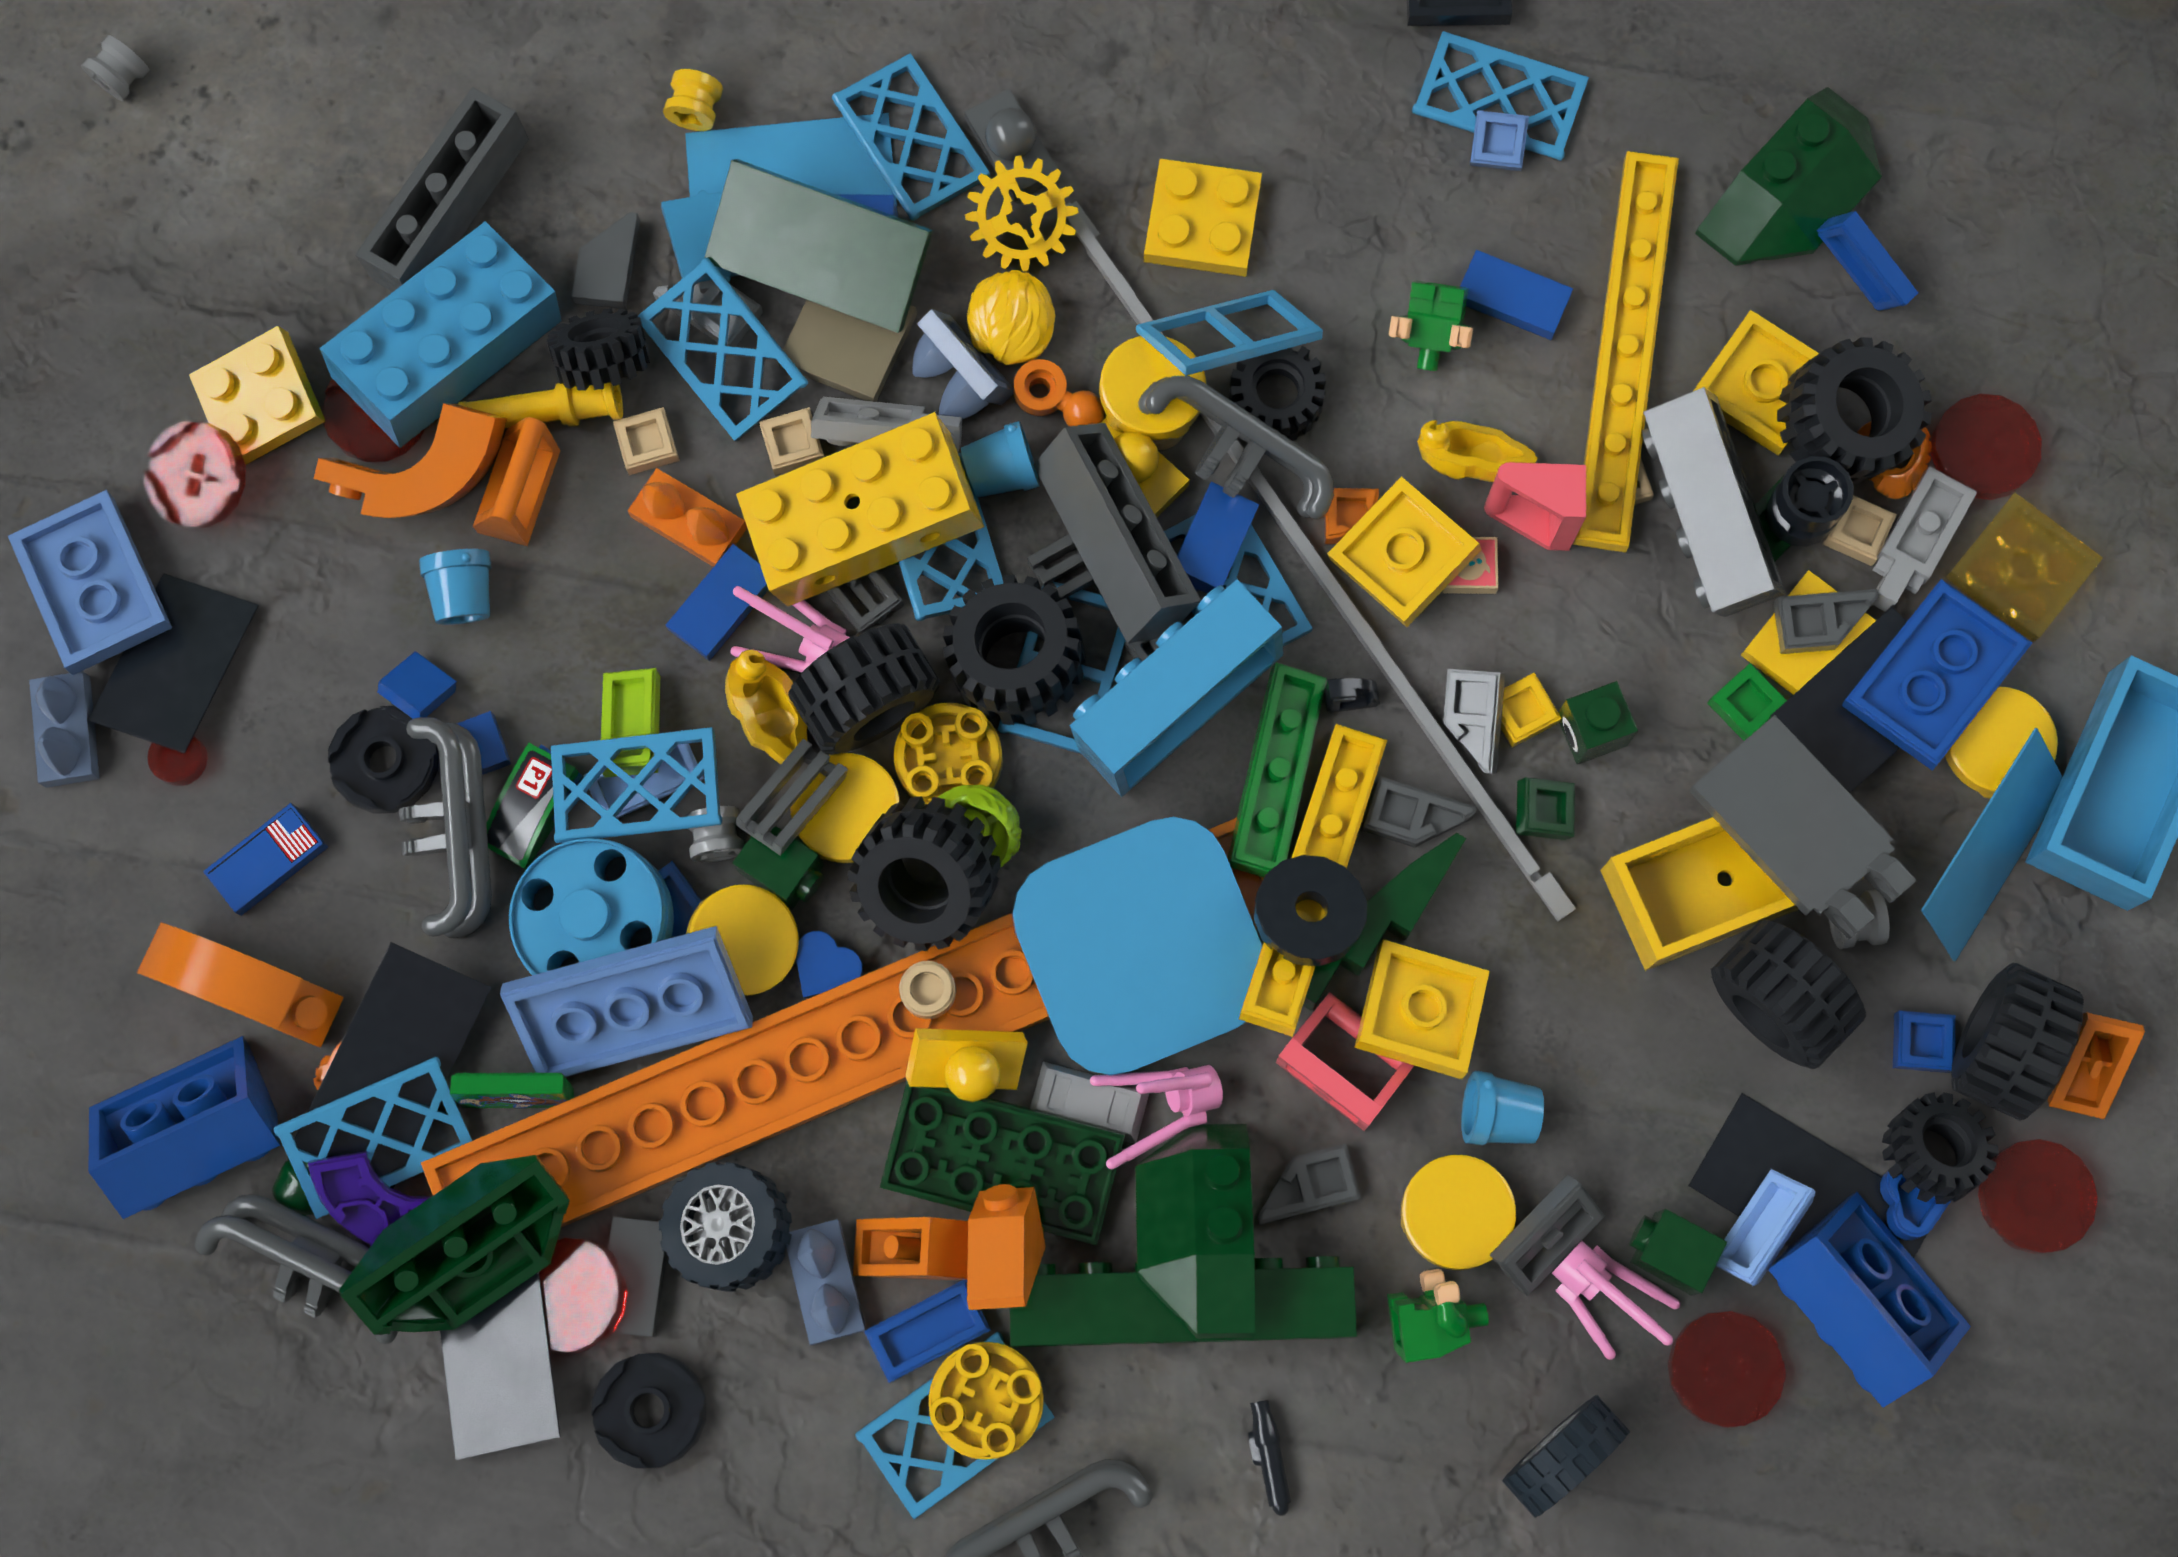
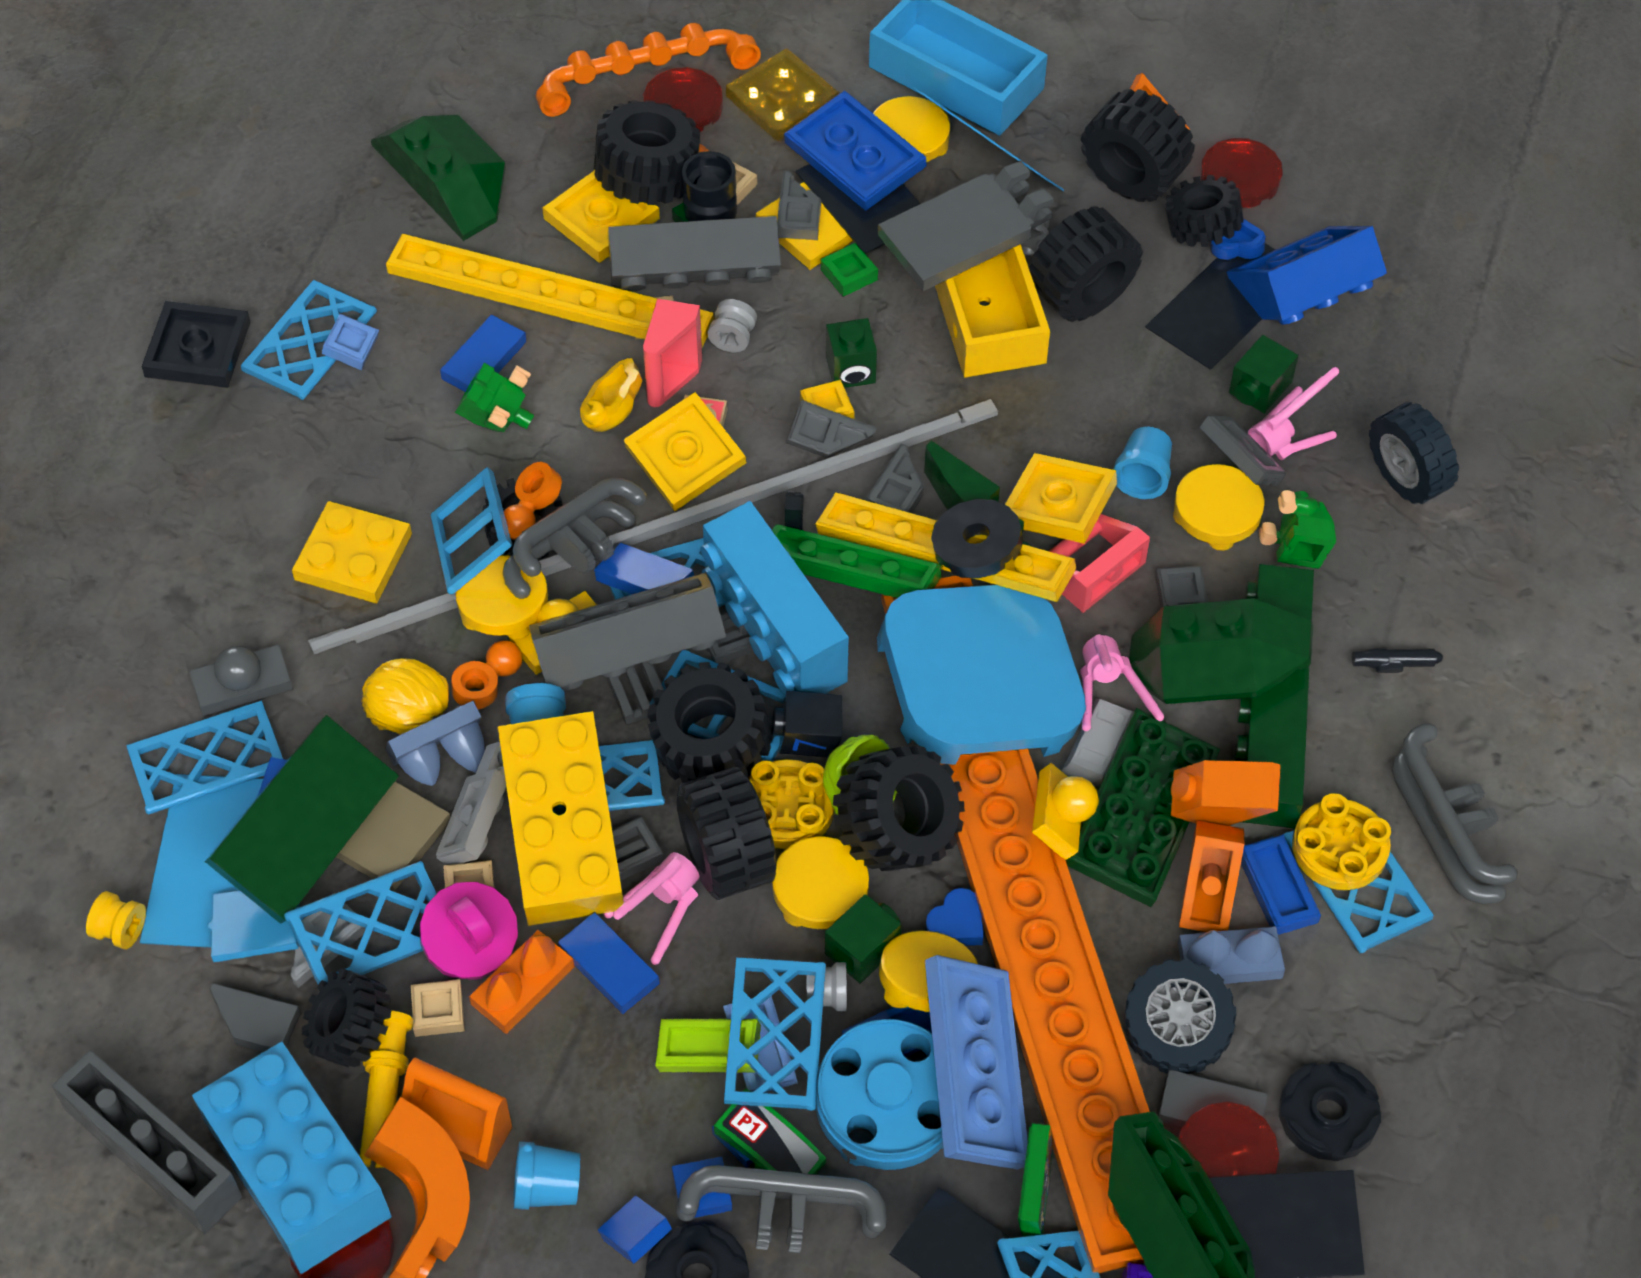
camera: 85 degrees left, 20 degrees down
(728, 447) = (468, 930): none -> dark pink tile
(761, 702) = (717, 931): yellow arm -> none
(817, 764) = (786, 886): dark grey tile -> none
(927, 989) = (995, 831): tan tile -> none
(999, 224) = (314, 670): yellow gear -> none
(1042, 759) = (808, 723): none -> black brick
(1293, 390) = (536, 489): none -> orange plate
(1346, 510) = (652, 503): orange tile -> none
(1545, 808) = (910, 401): dark green tile -> none
(1614, 573) = (732, 325): none -> light grey wheel
(1726, 1369) = (1361, 364): clear red tile -> none
(1764, 1227) = (1246, 318): light blue tile -> none
(1866, 261) = (526, 130): blue tile -> none
(1920, 535) = (745, 145): light grey hinge -> none
(1923, 1041) = (1126, 210): blue tile -> none
(2087, 502) = (554, 97): none -> orange bar

